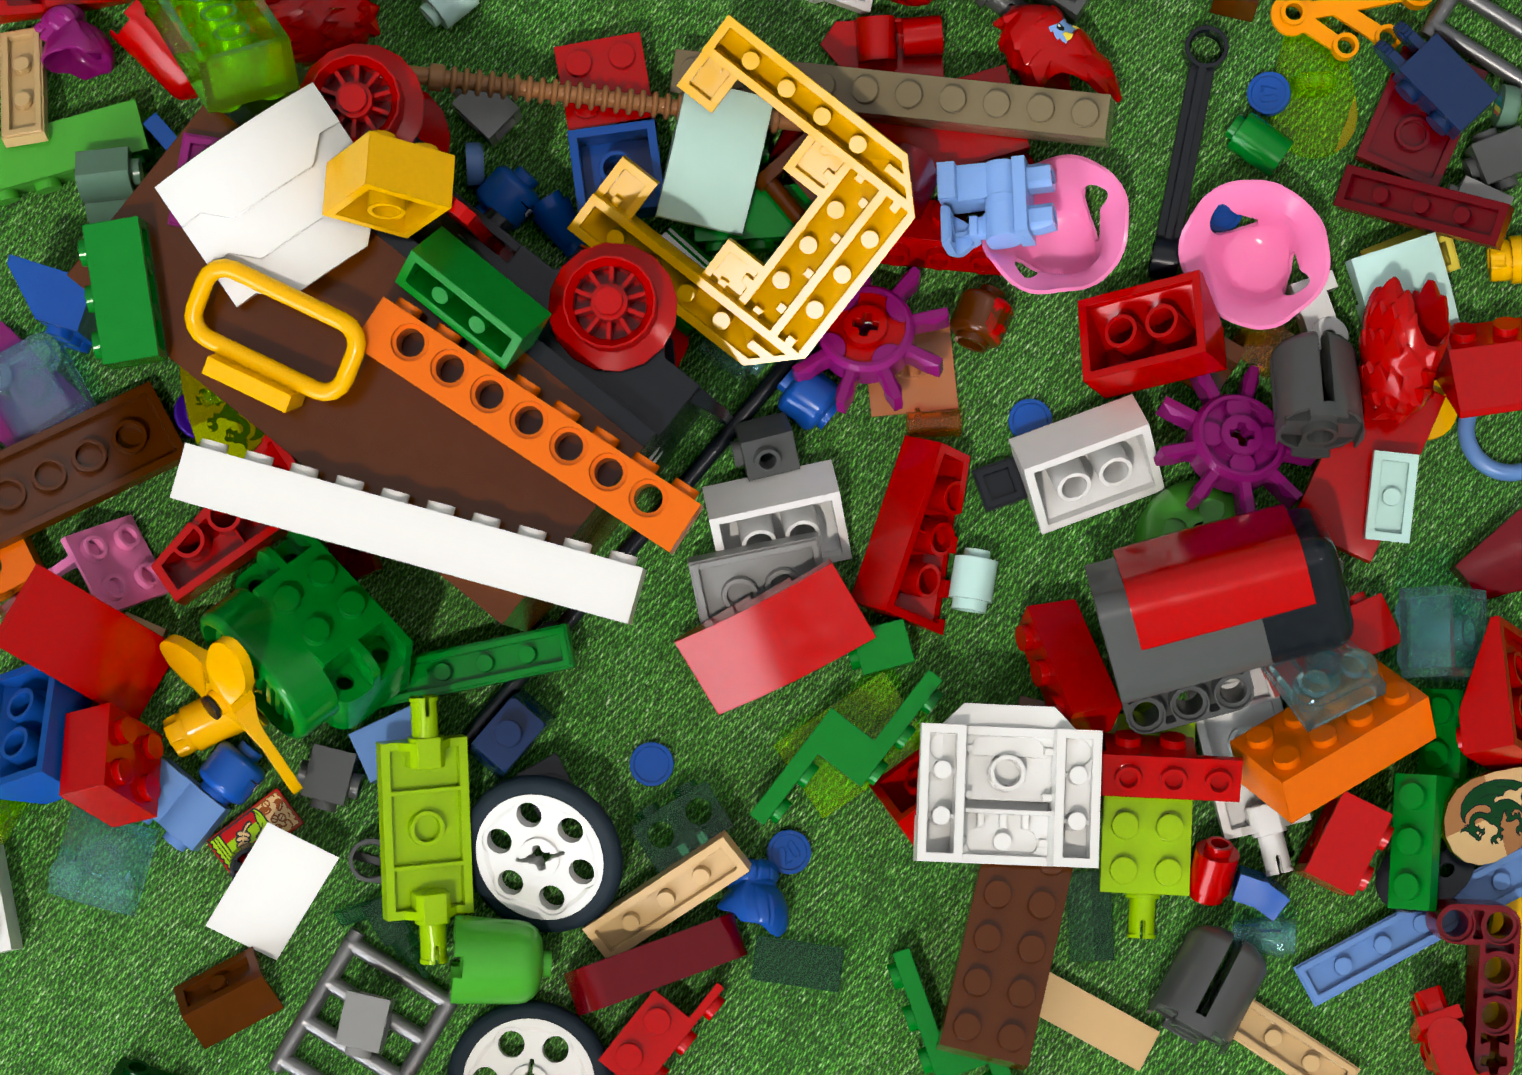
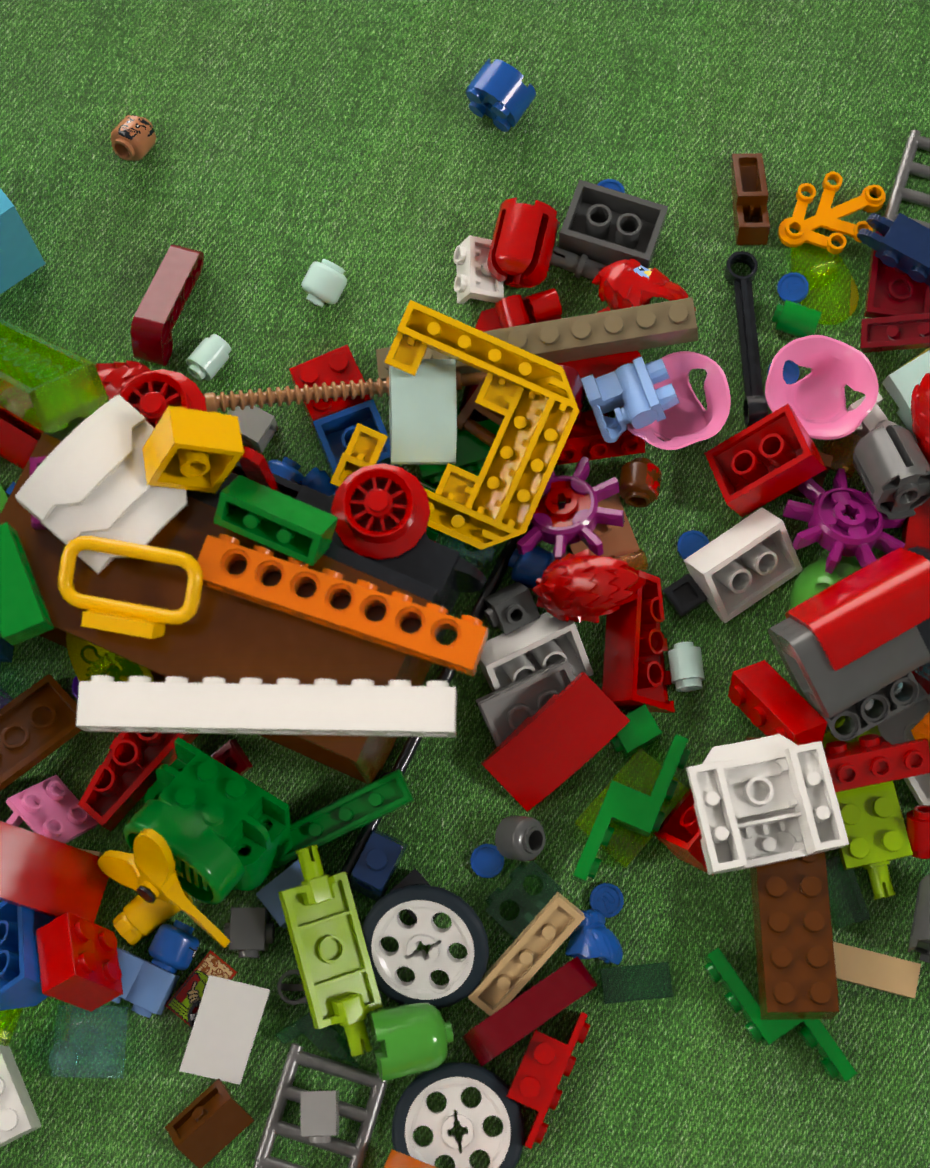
camera: 20 degrees left, 10 degrees down
(698, 747) = (520, 838): none -> dark grey head
(865, 450) = (586, 586): none -> red head

